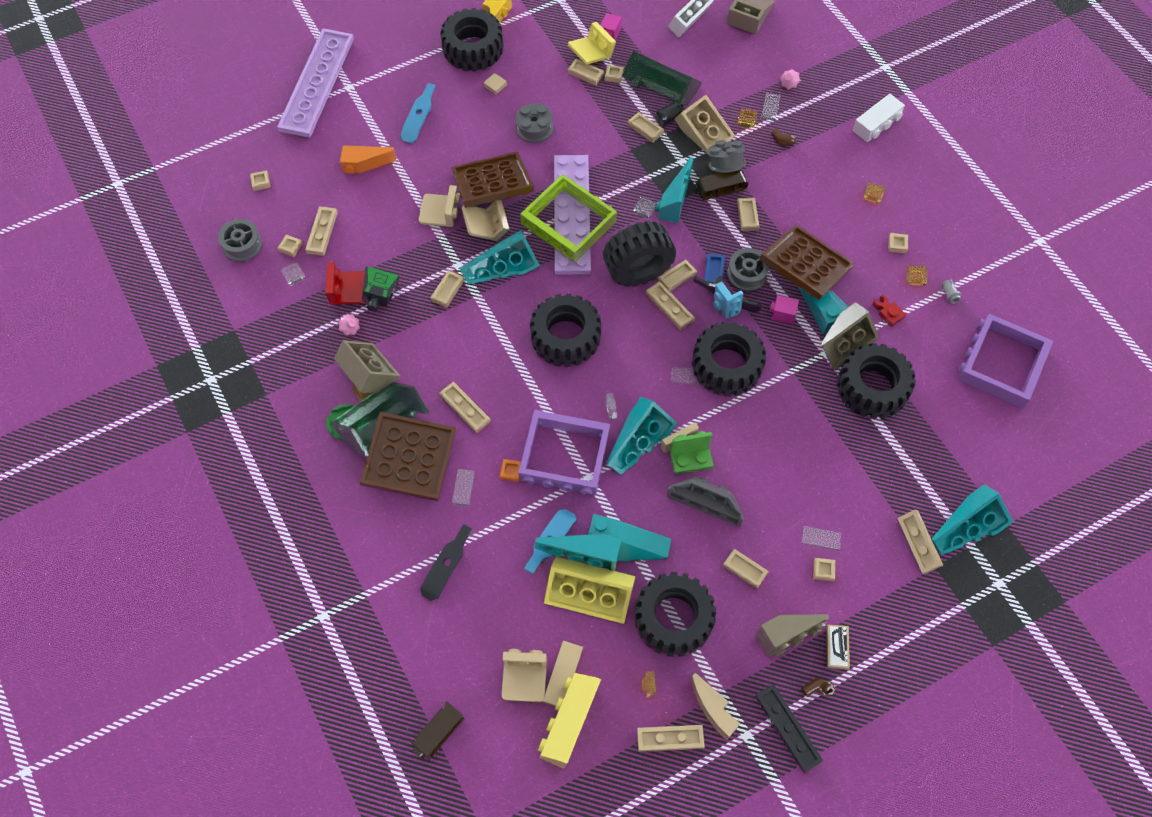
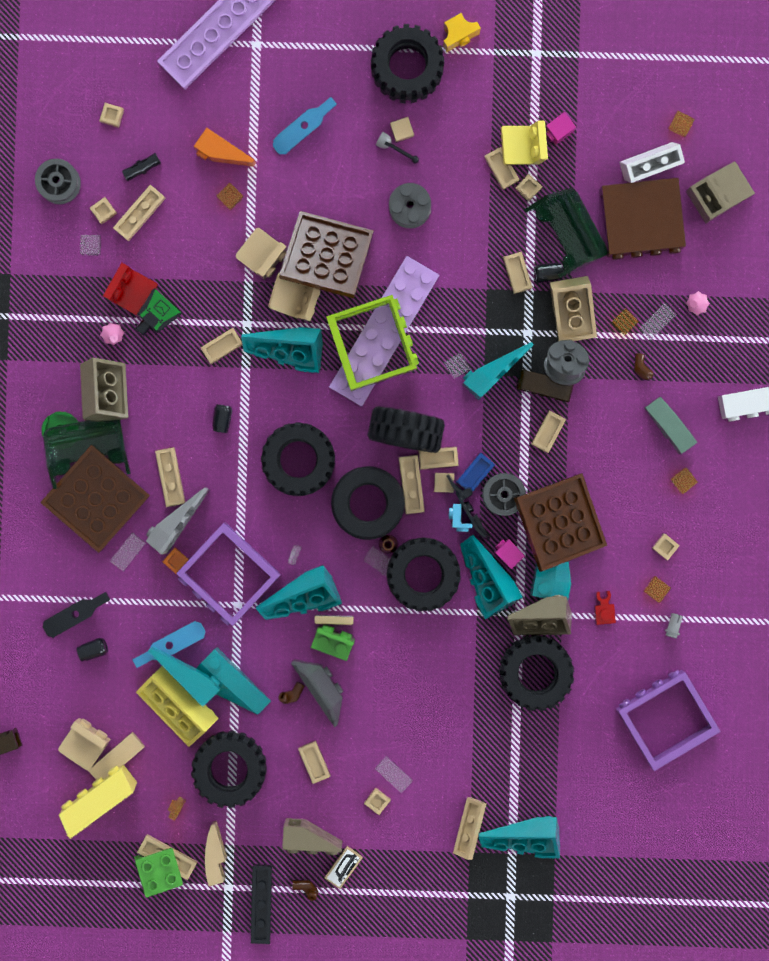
camera: 30 degrees right, 25 degrees up
(305, 201) = (141, 167): none -> black pin
(389, 187) = (230, 196): none -> clear yellow tile
(481, 337) = (221, 418): none -> black piece
(481, 586) = (92, 649): none -> black piece
(487, 96) = (385, 141): none -> hinge
(490, 441) = (168, 530): none -> light grey wedge
(651, 310) = (341, 502): none -> black tyre
(670, 757) = (158, 872): none -> bright green bracket
(683, 355) = (392, 539): none -> reddish brown cone
(687, 522) = (292, 695): none -> reddish brown arm
(694, 291) = (442, 483): none -> tan tile
(711, 48) = (643, 218): none -> reddish brown panel
(786, 339) = (491, 582): none -> teal wedge
(835, 161) = (670, 425): none -> sand green slope

